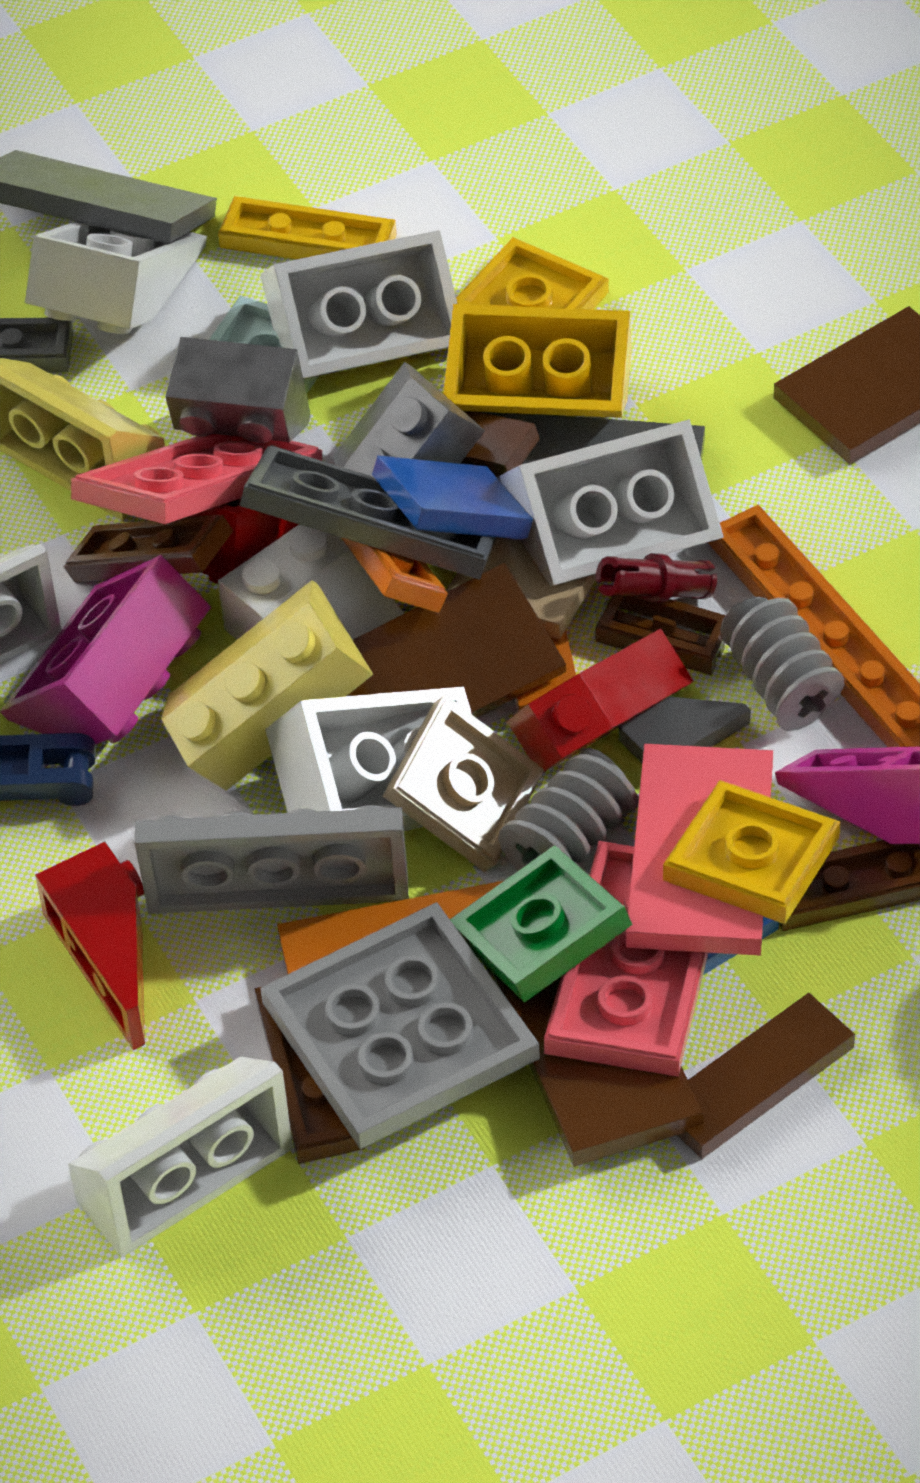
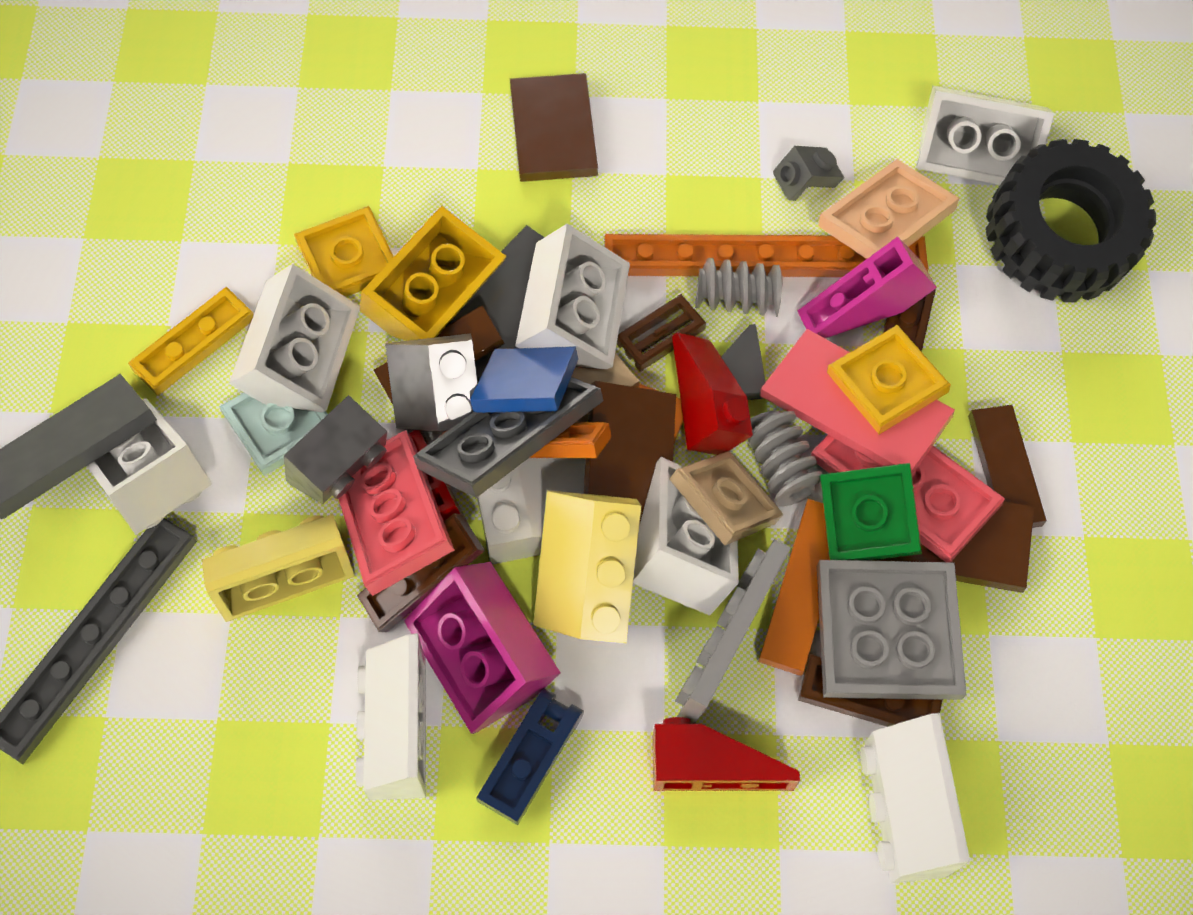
camera: 65 degrees left, 15 degrees up
(656, 578) = (638, 313): dark red pin -> none

